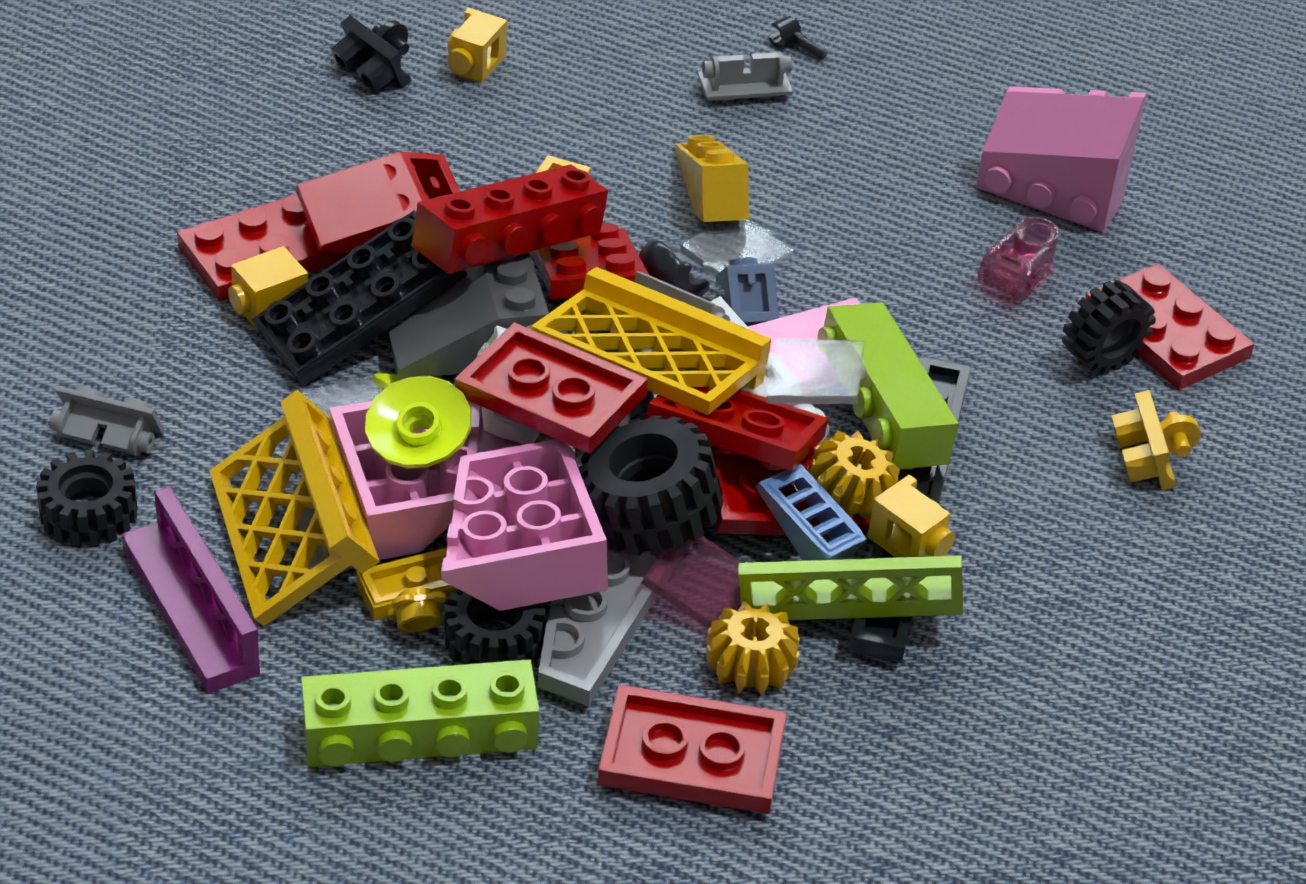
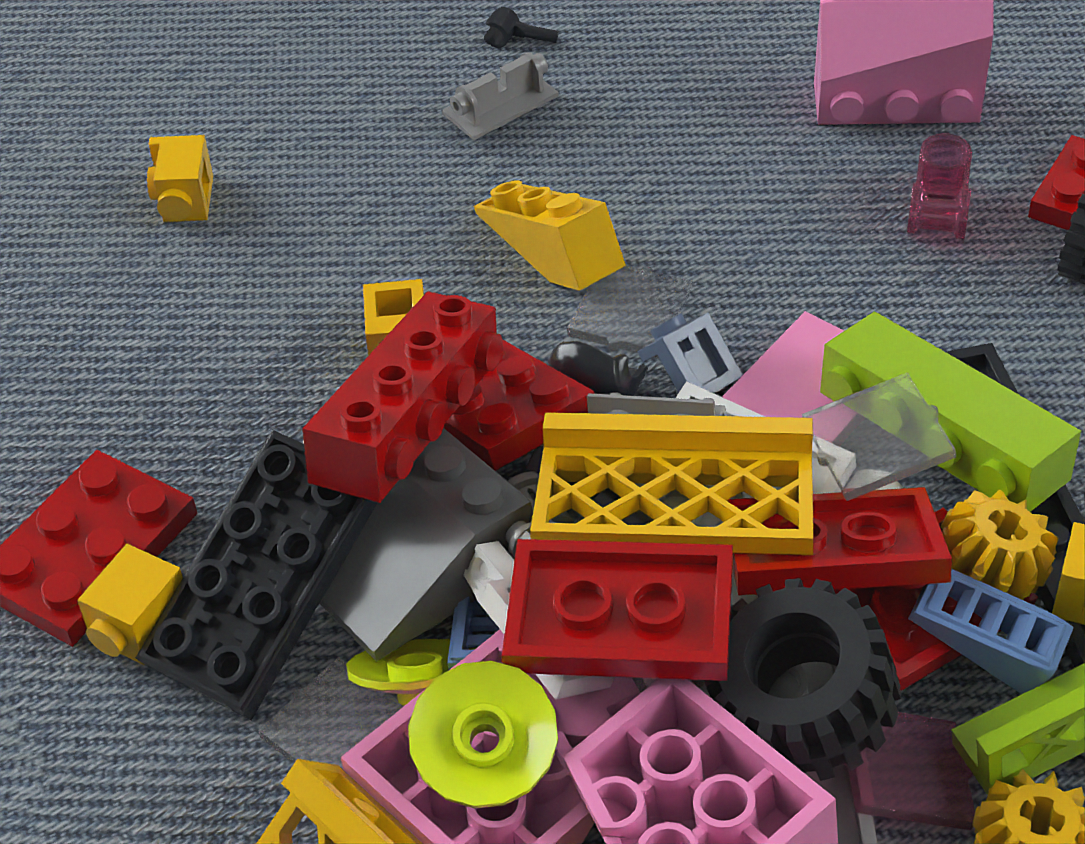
camera: 20 degrees left, 5 degrees up
(367, 198) = (206, 430): slope -> none
(379, 48) = (70, 226): black hips -> none

